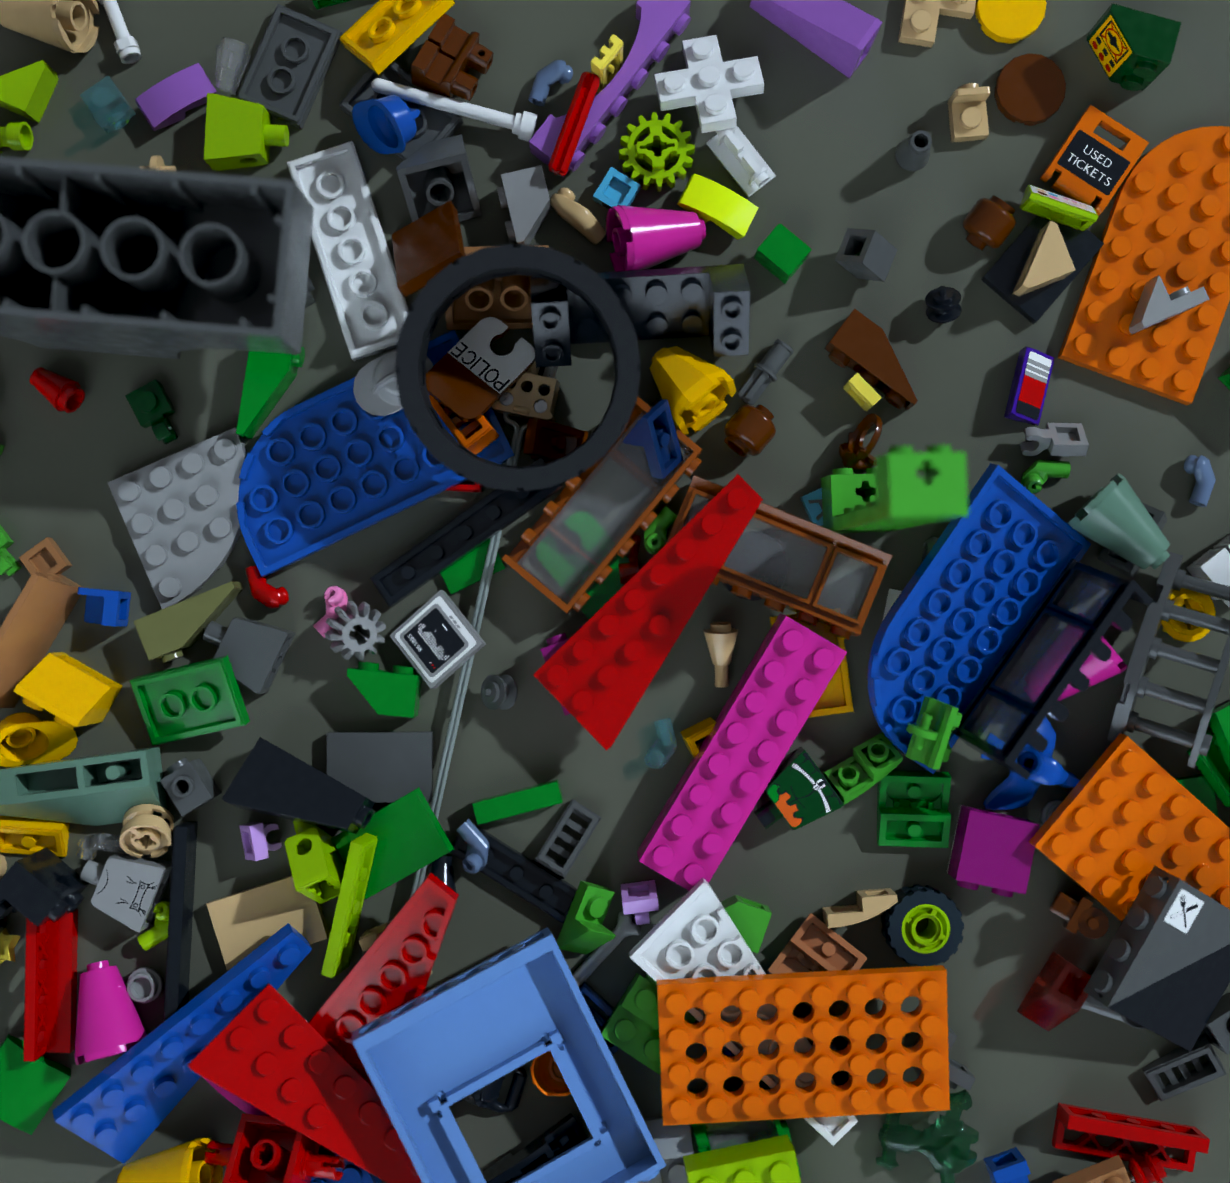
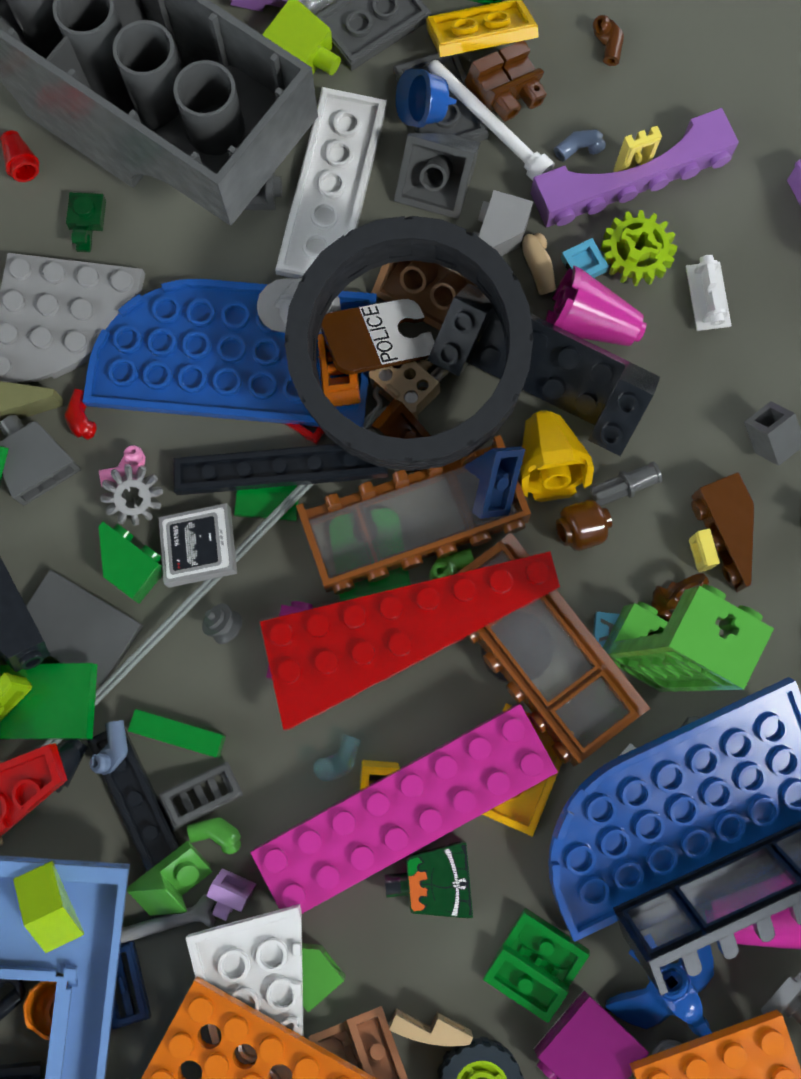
camera: 35 degrees right, 10 degrees down
(264, 384) = (193, 245): green slope -> none
(426, 247) = (395, 203): reddish brown tile -> none
(508, 1001) = (46, 907): none -> lime slope
(574, 123) = (580, 182): red axle -> none
(599, 857) = (219, 831): none -> bright green arm
(628, 570) = (401, 581): clear red hand -> none
(635, 1022) = (152, 1008): bright green plate -> none
(709, 83) = (716, 218): white plate -> none
(718, 204) = (667, 320): neon yellow slope -> none
(721, 643) = (445, 702): tan cone -> none
(782, 253) = (700, 391): green panel -> none
(864, 769) = (518, 896): bright green slope -> none
(932, 732) = (595, 898): bright green hips -> none

